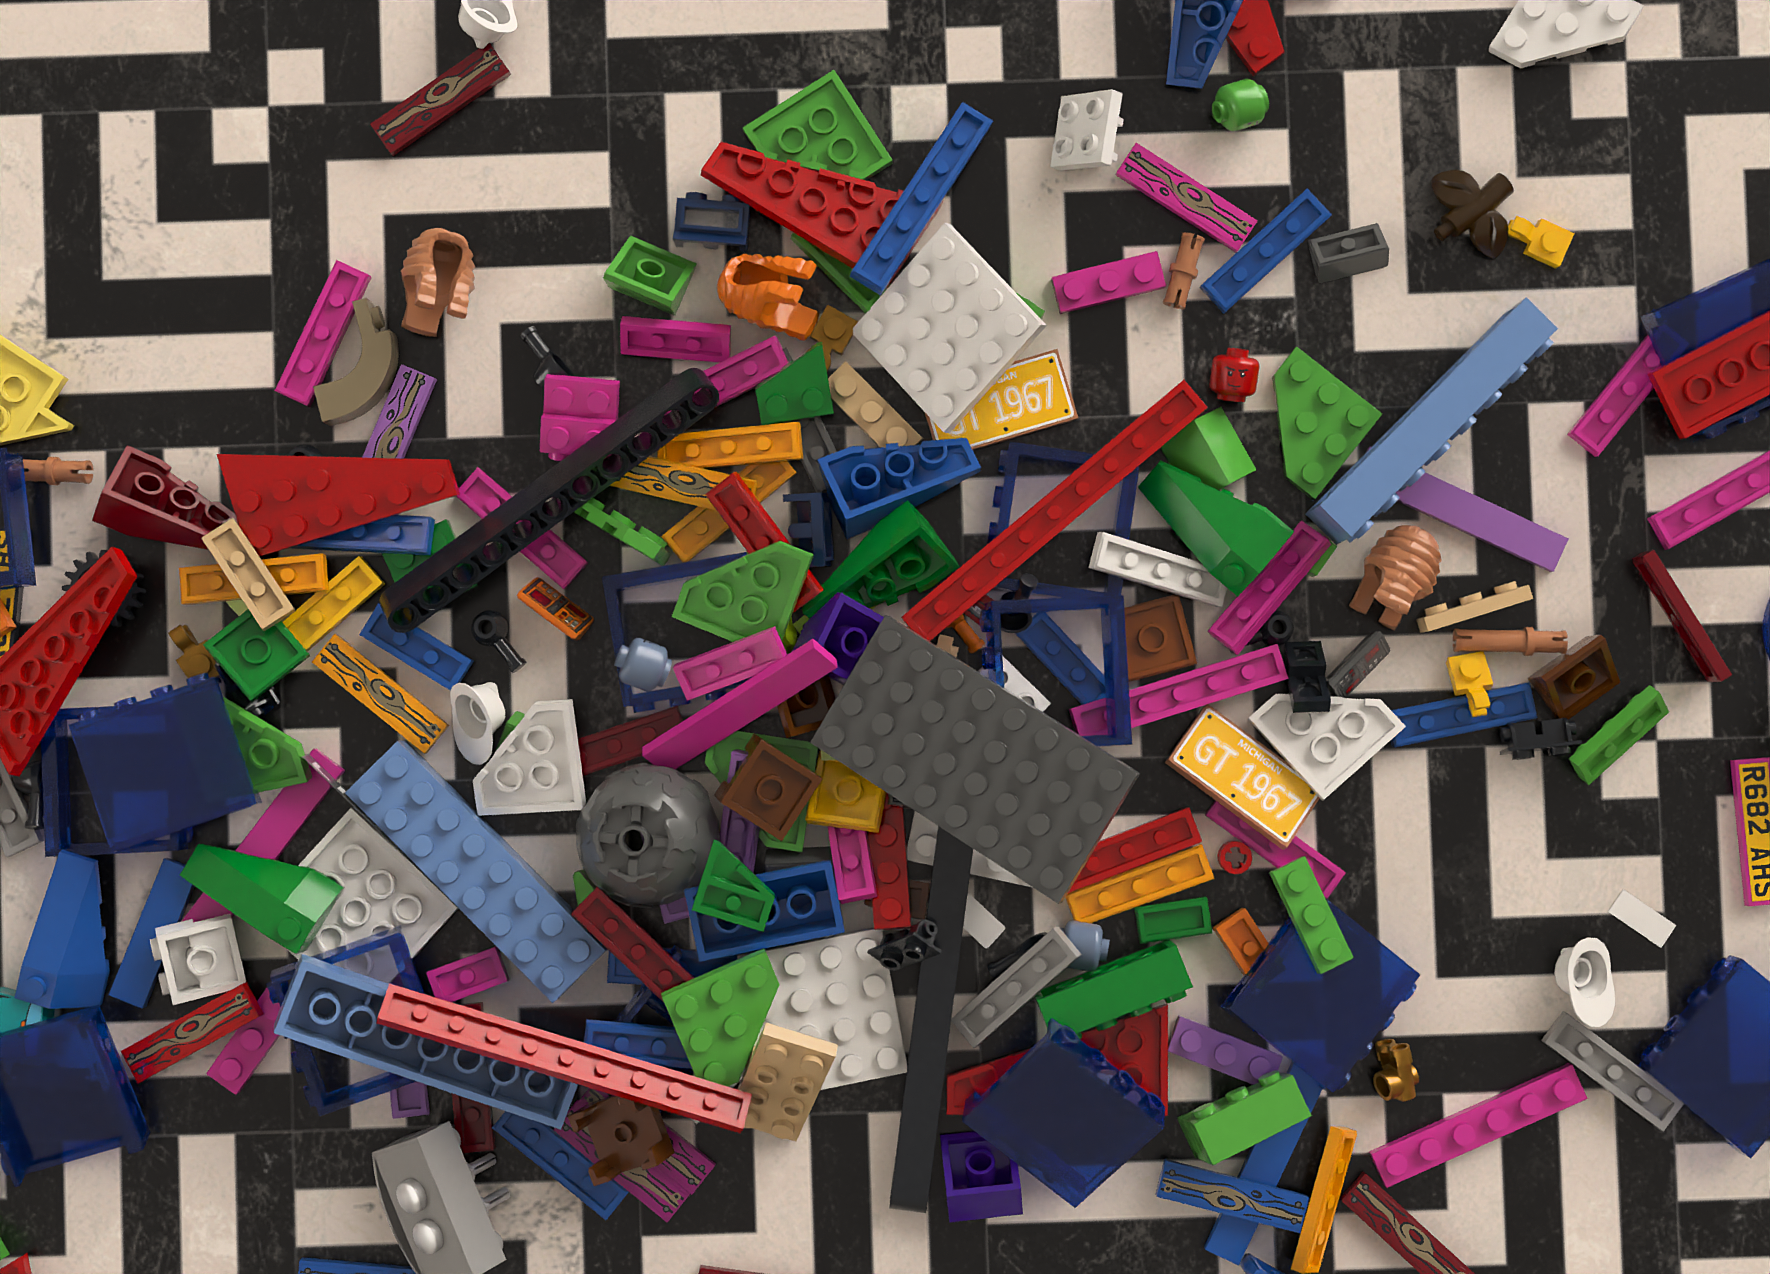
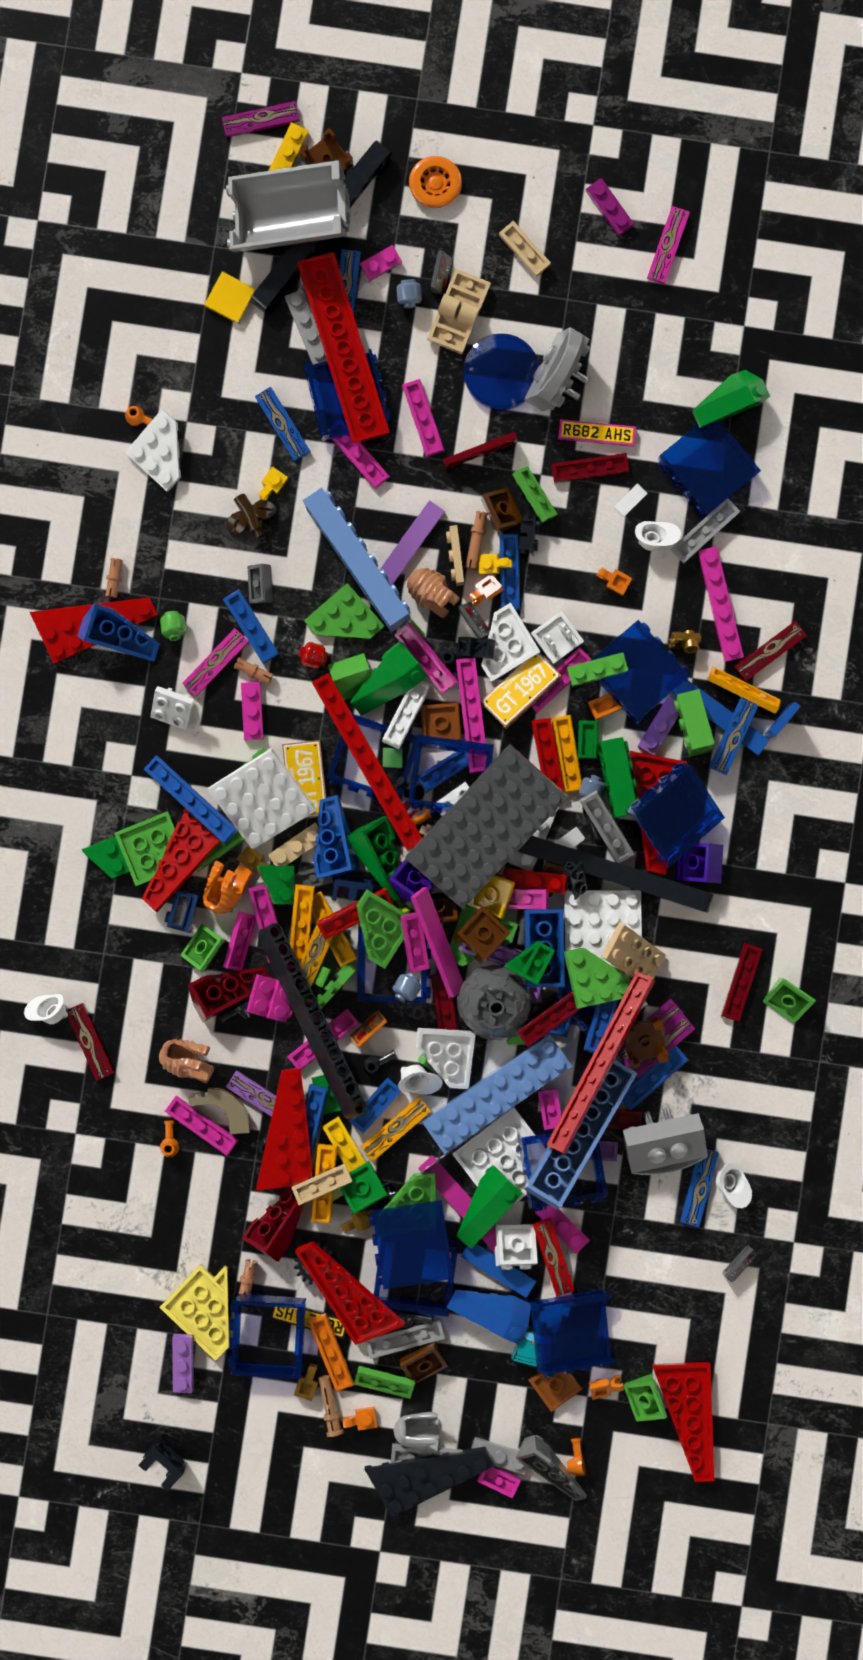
camera: 85 degrees left, 0 degrees up
(284, 280) = (169, 1140): none -> orange bar
(574, 322) = (220, 992): none -> dark red wedge
(638, 504) = (322, 976): none -> bright green slope
(786, 67) = (108, 857): none -> green wing
(1070, 558) = (392, 758): none -> bright green slope
(1243, 849) = (557, 697): red bush -> none
(1355, 826) = (557, 637): none -> white plate
(1422, 676) = (487, 589): none -> plate
(1483, 921) = (617, 581): none -> orange plate
(1657, 238) = (282, 424): none -> blue tile
(1688, 831) = (590, 468): none -> dark red tile

